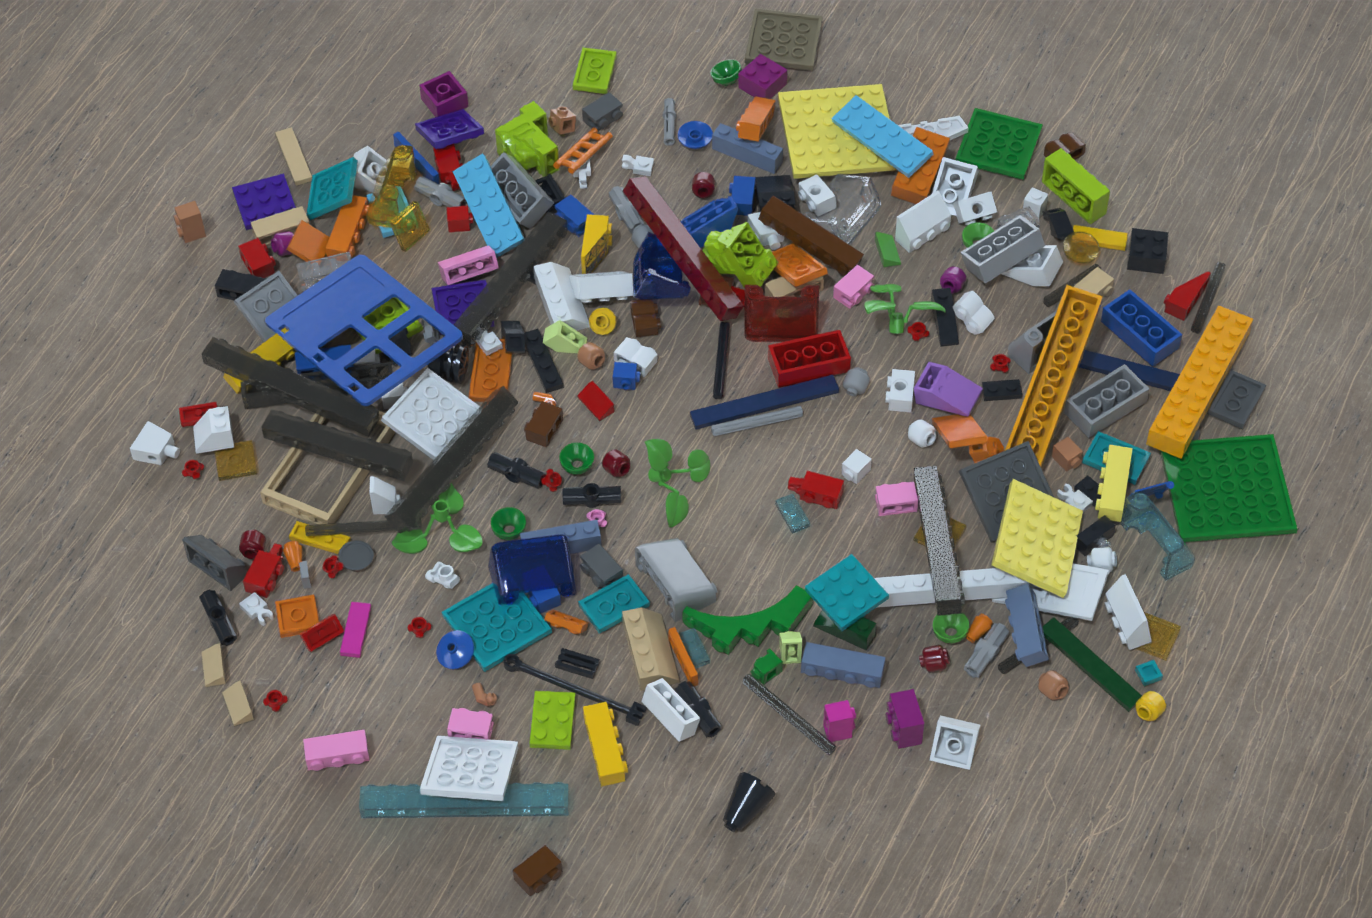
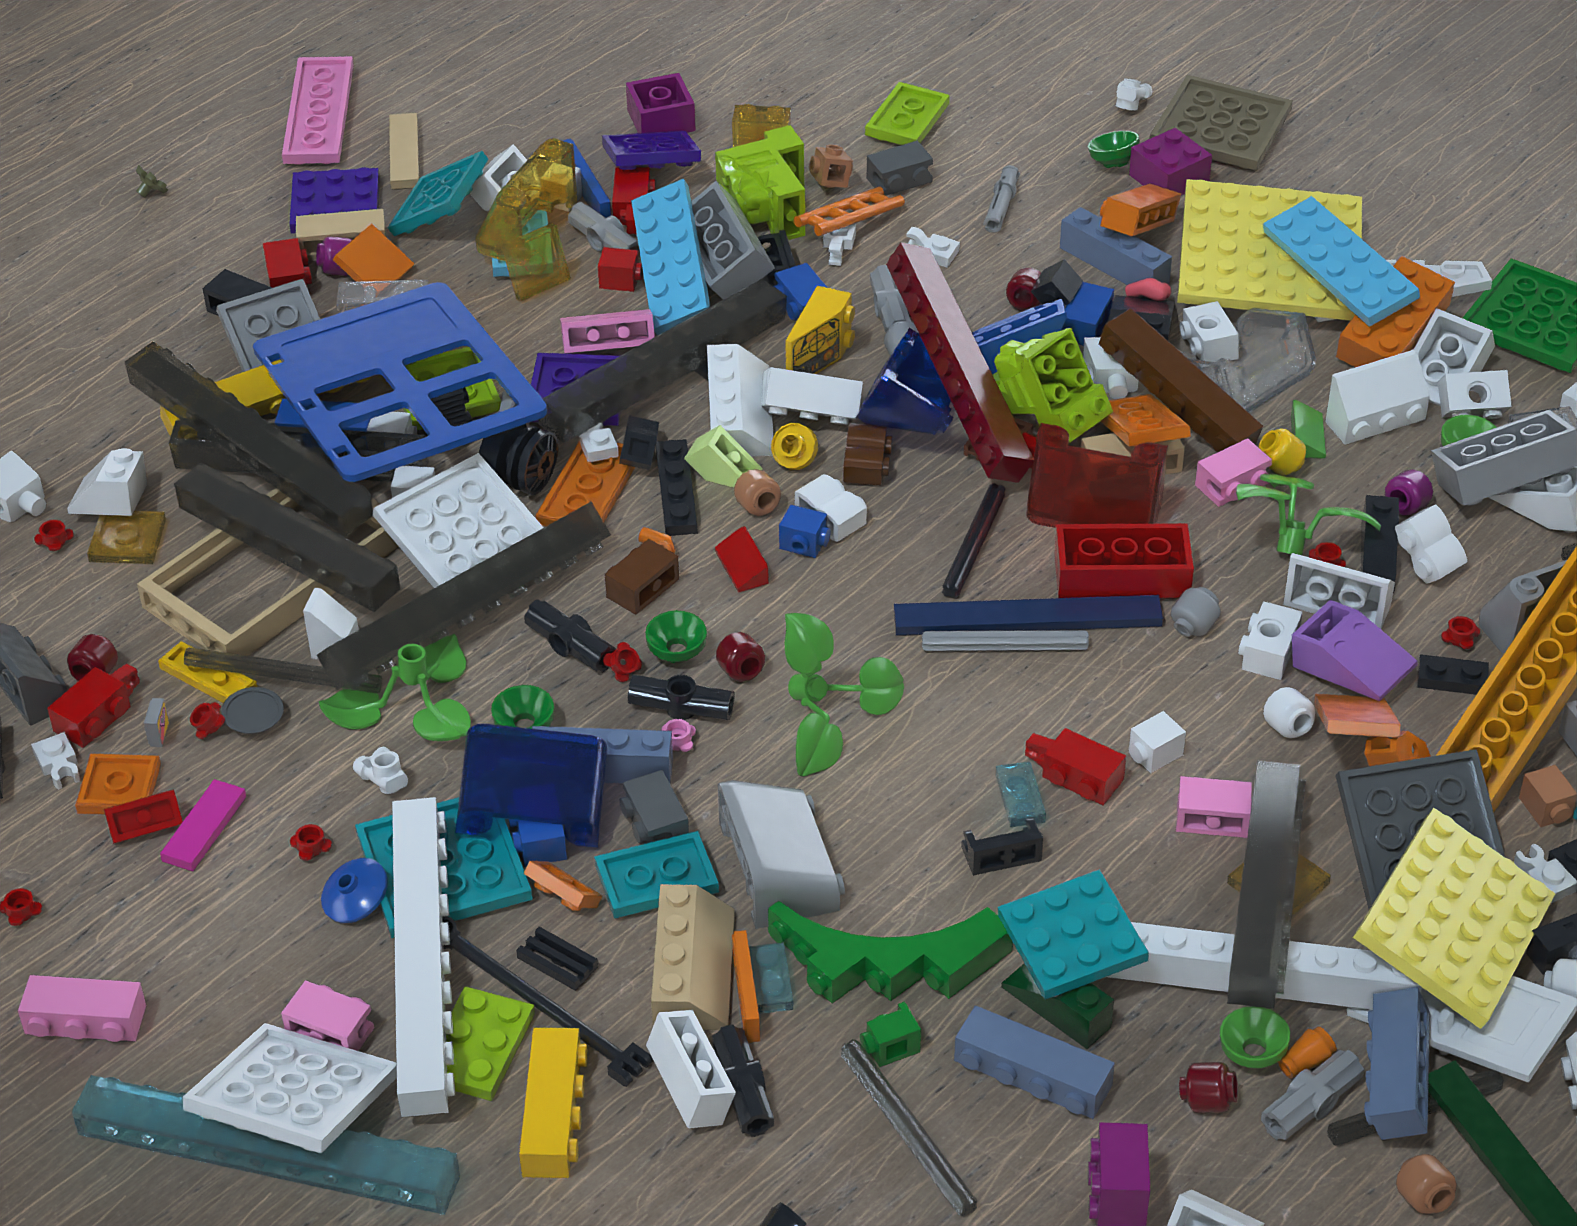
camera: 15 degrees right, 10 degrees down
(144, 213) = (149, 182): none -> olive plant
(189, 222) = (204, 200): nougat brick -> none
(192, 414) = (84, 458): red plate -> none
(228, 137) = (318, 110): none -> bright pink plate
(293, 554) = (151, 683): orange cone -> none
(348, 227) = (443, 248): orange brick -> none
(483, 698) = (370, 979): nougat arm -> none
(509, 98) = (752, 121): none -> clear yellow brick
(509, 680) = (420, 959): none -> white brick
(695, 134) = (1035, 220): blue dish -> none
(722, 182) = (1057, 283): none -> black brick
(724, 29) = (1130, 92): none -> white plate
(774, 170) = (1149, 288): none -> coral arm
(790, 647) = (944, 1010): yellowish green slope -> none
(792, 547) = (1004, 849): none -> black hinge
(839, 720) = (994, 1155): dark pink brick -> none
(878, 267) = (1285, 451): none -> yellow head
(920, 351) = (1316, 582): none -> white slope

